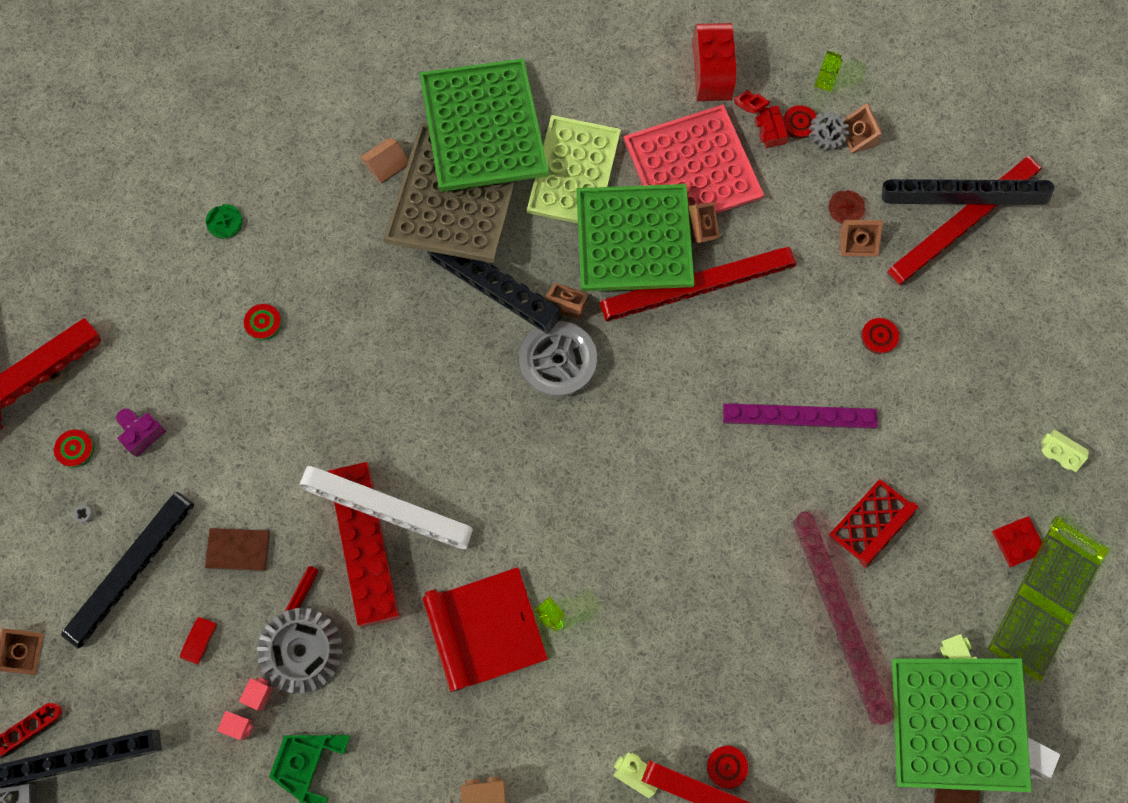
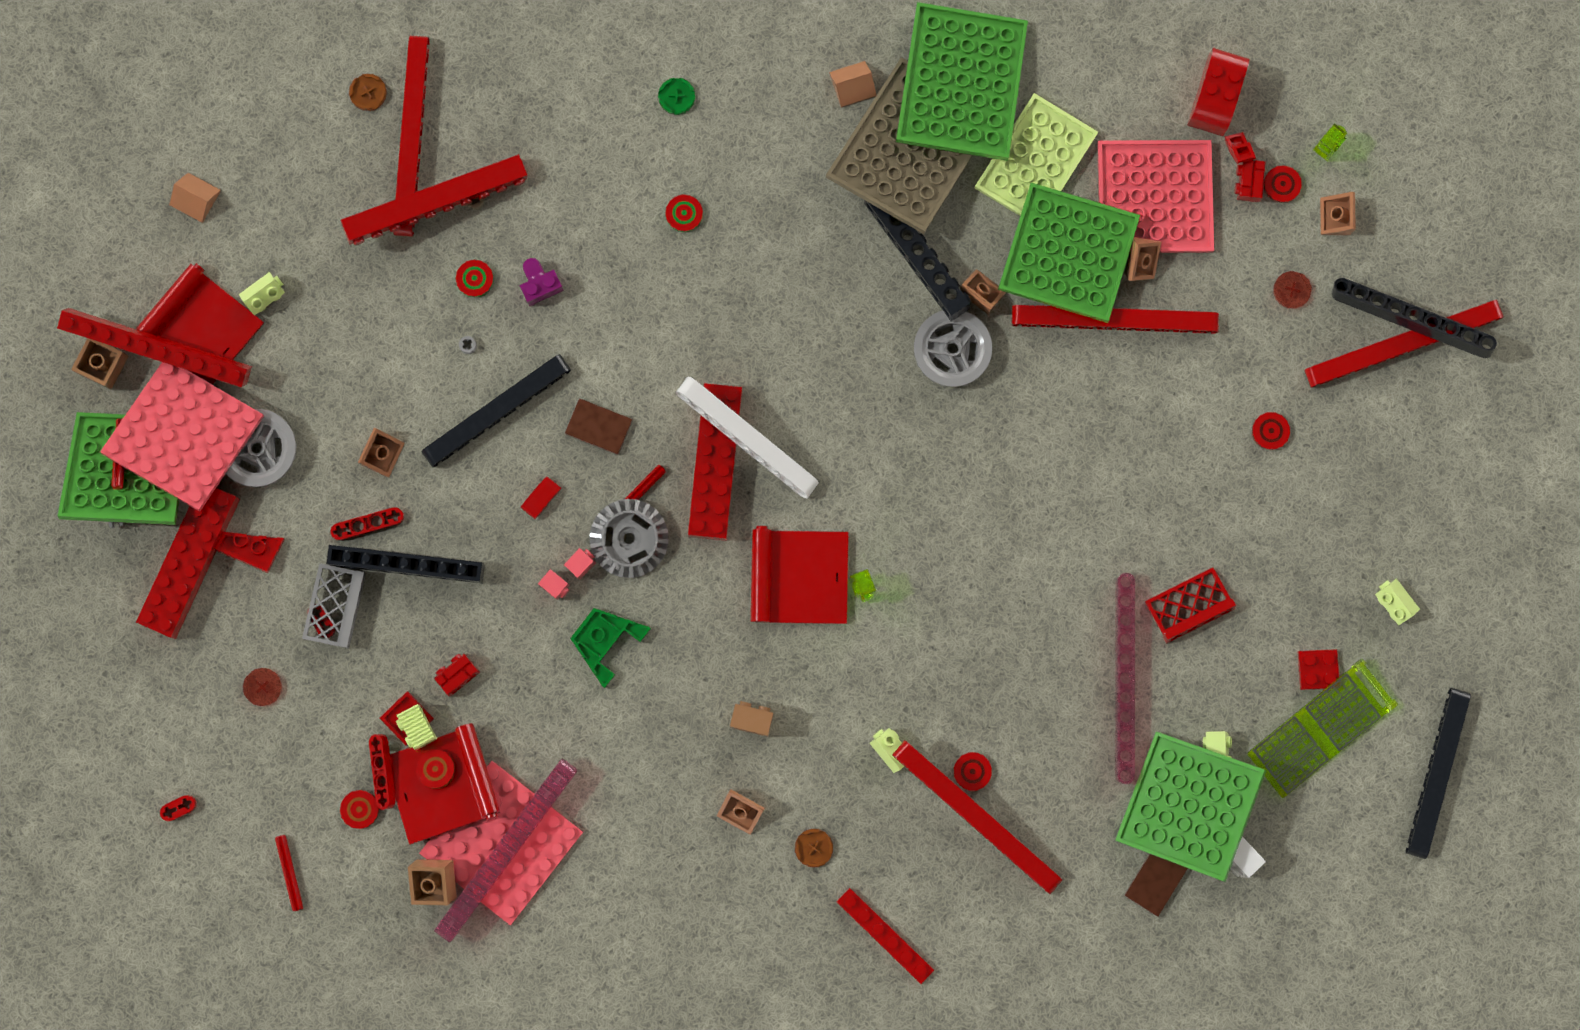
camera: 20 degrees right, 10 degrees up
(800, 416) = (1162, 482): magenta plate -> none
(835, 126) = (1310, 197): light grey gear -> none
(860, 237) = (1291, 328): nougat slope -> none

